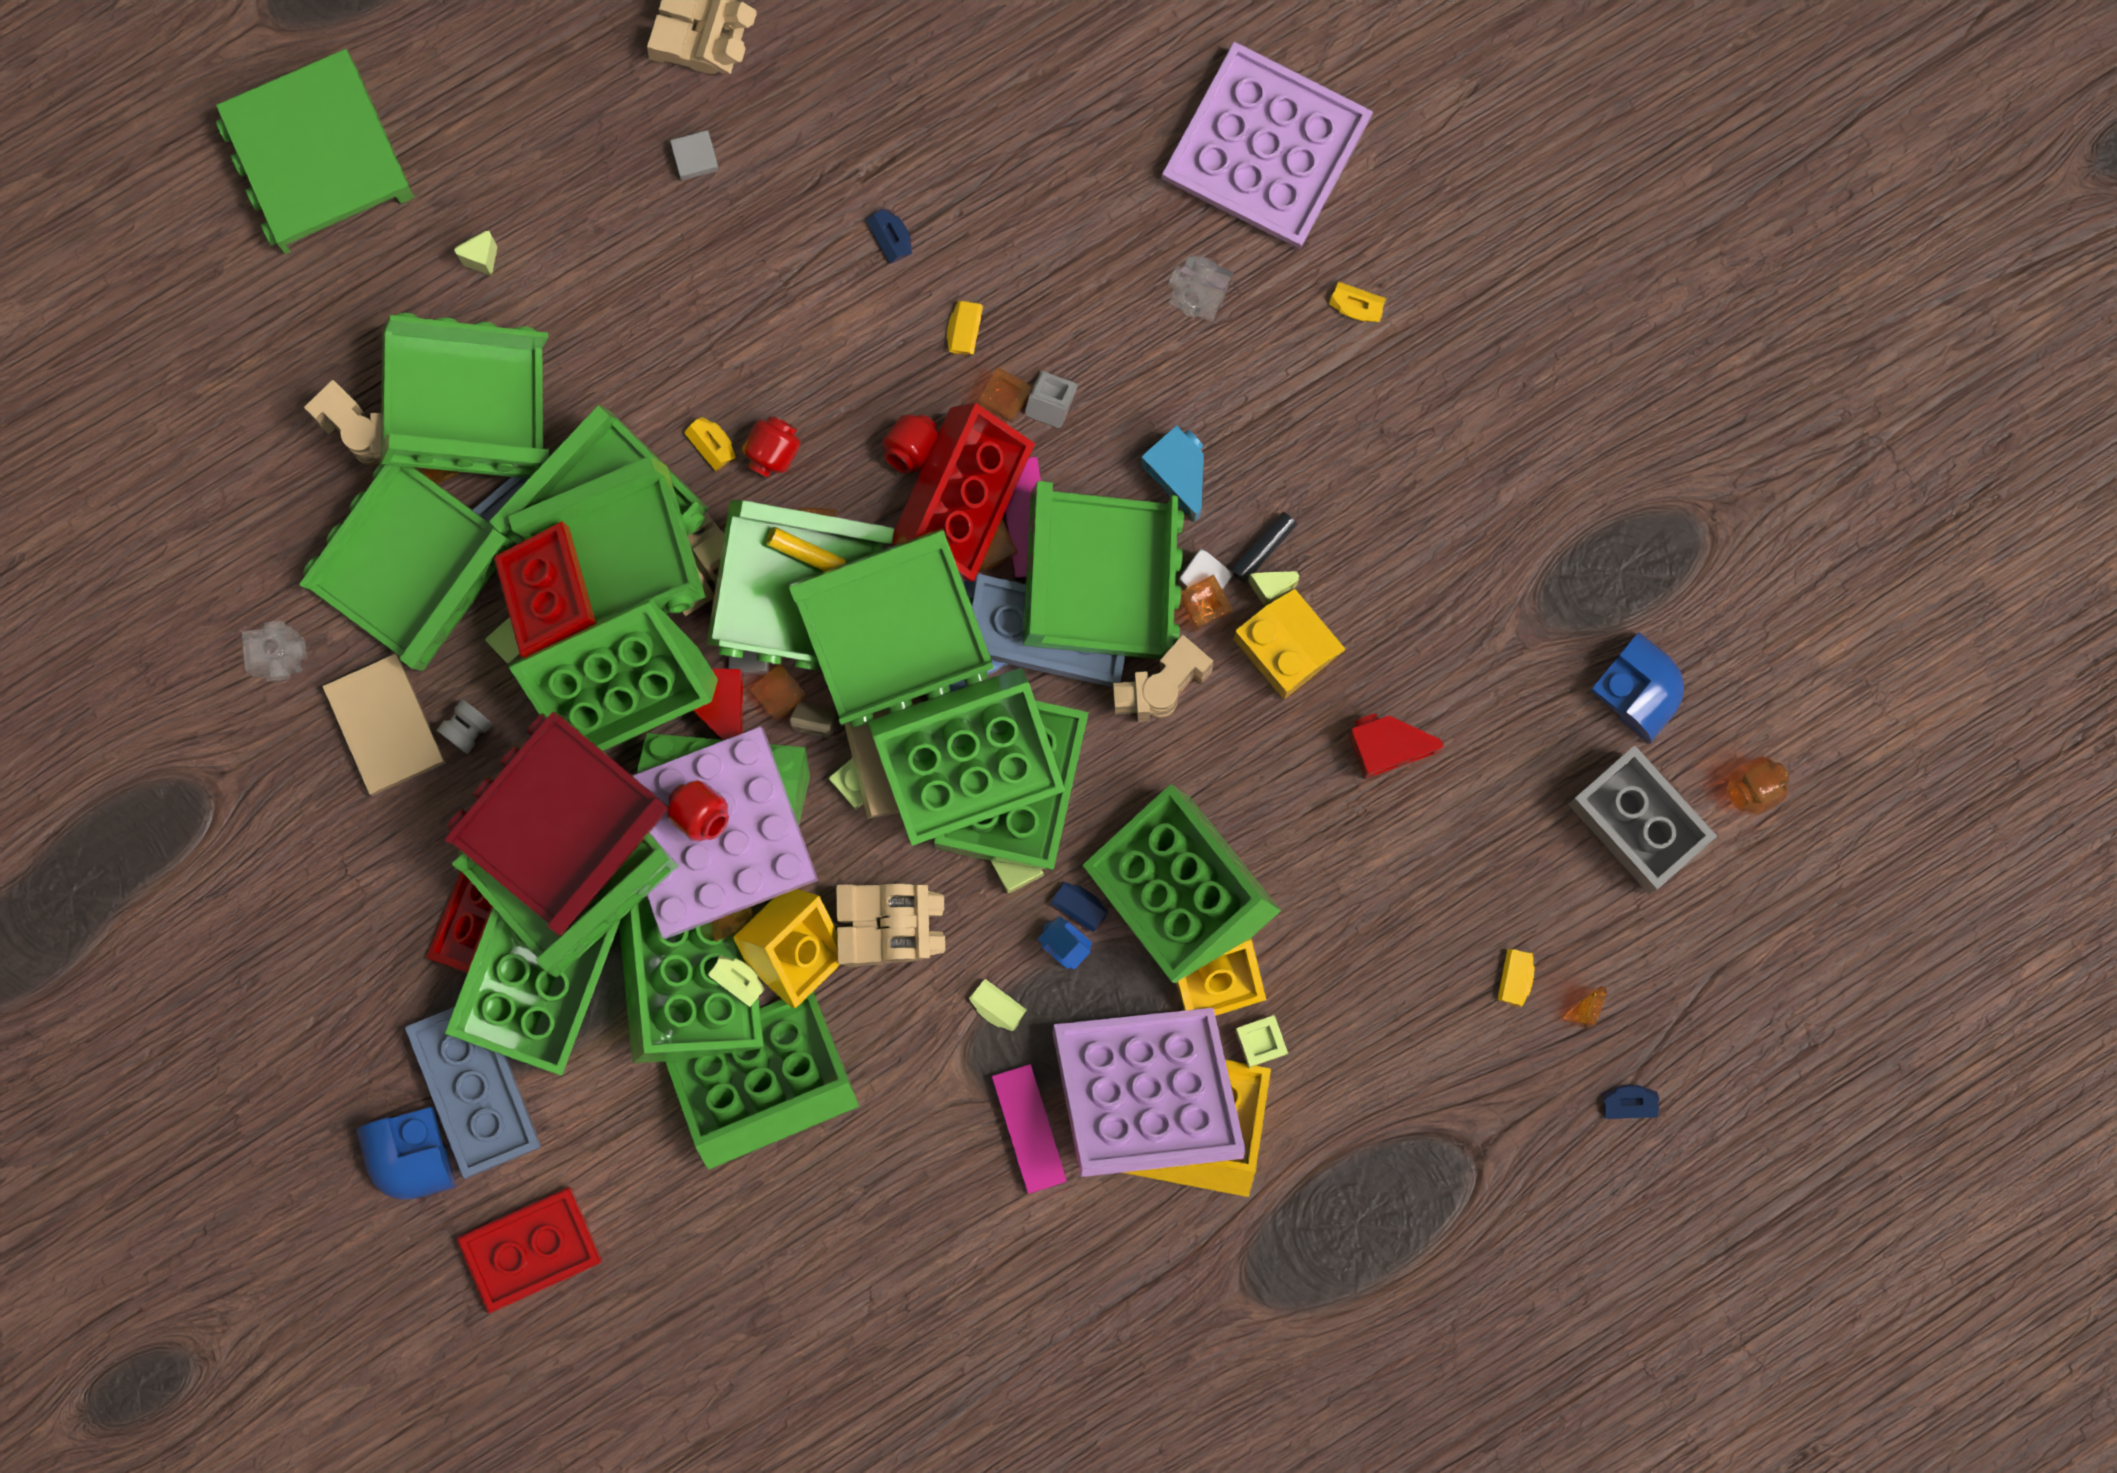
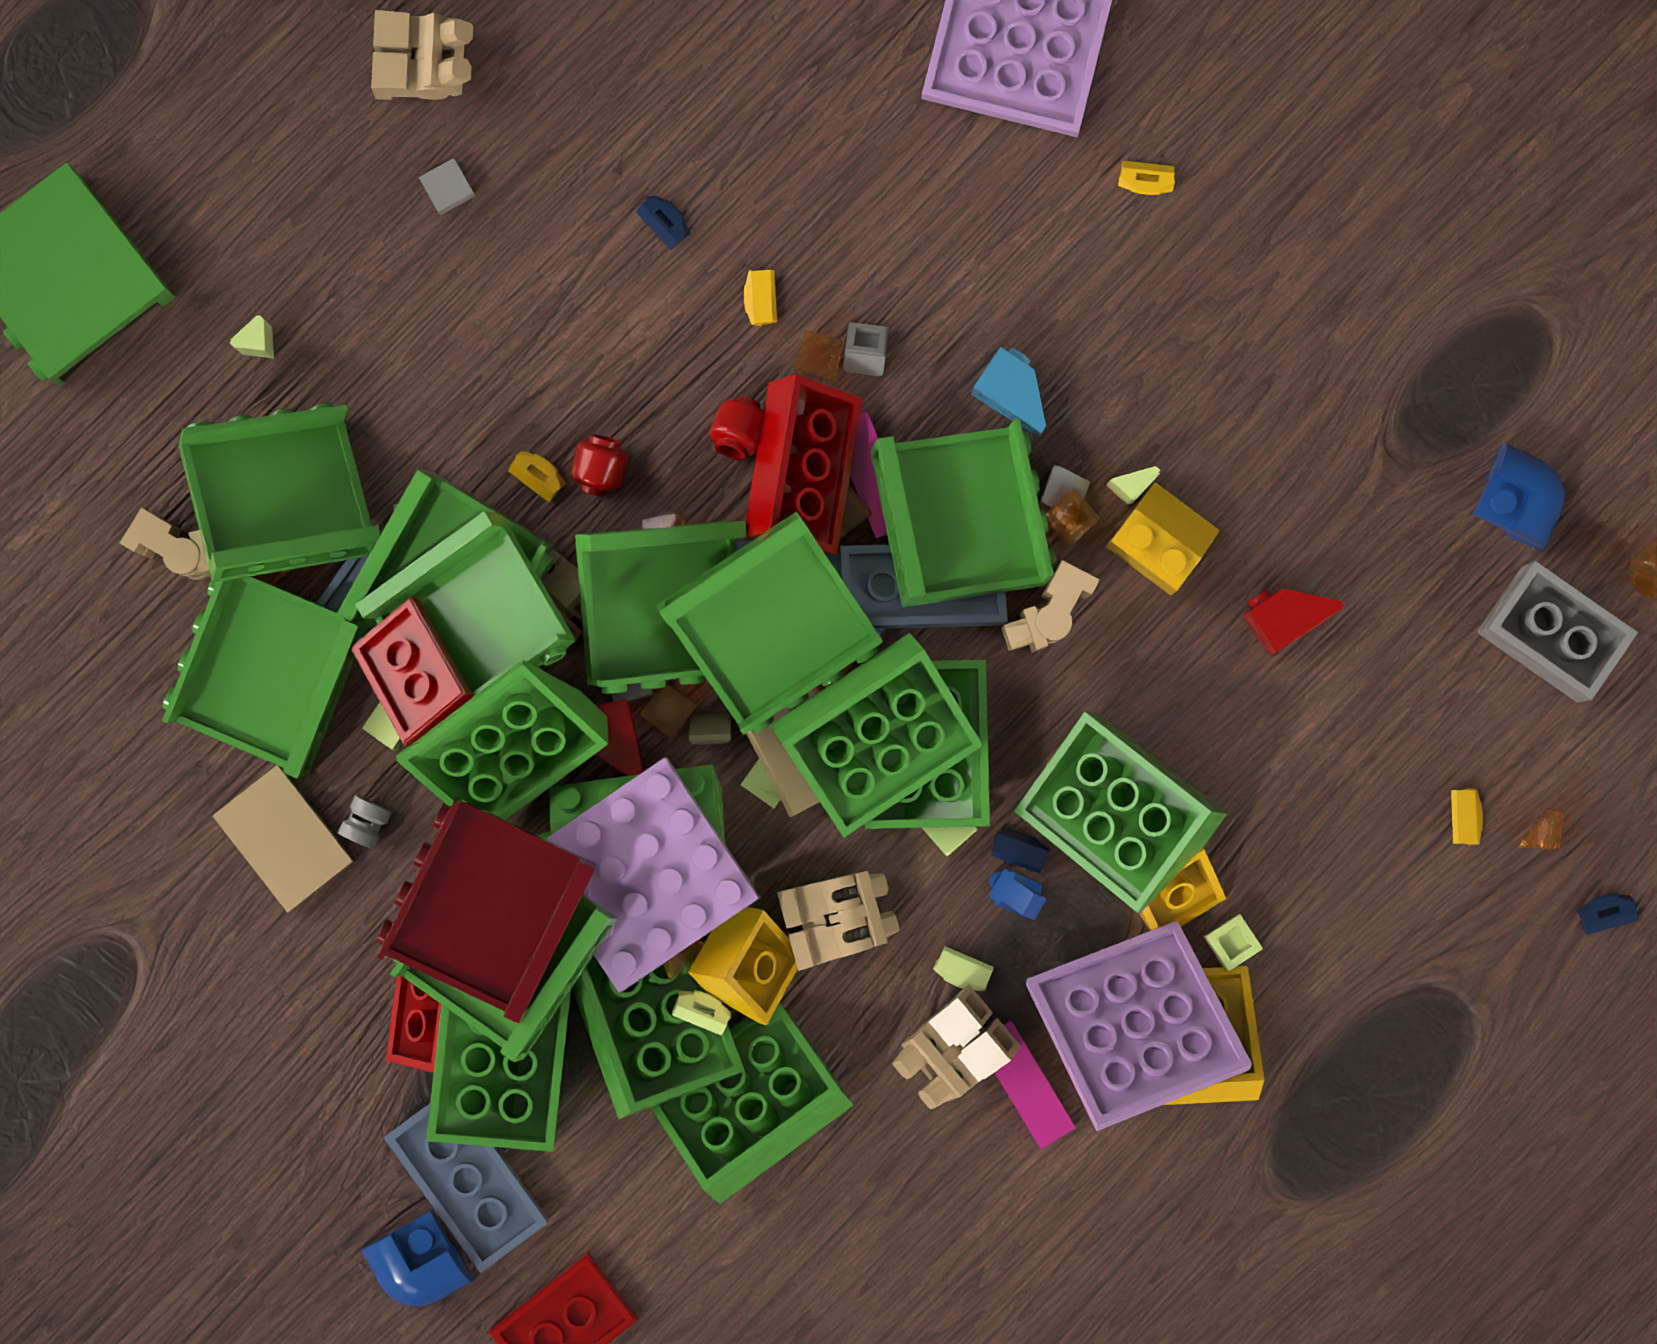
camera: 15 degrees left, 5 degrees up
(273, 651) = (141, 798): clear brick -> none
(698, 811) = (624, 861): red head -> none
(803, 550) = (661, 566): yellow piece -> none
(971, 1072) = (962, 1050): none -> tan hips
(1199, 287) = (988, 200): clear brick -> none
(1263, 547) = (1114, 447): black piece -> none

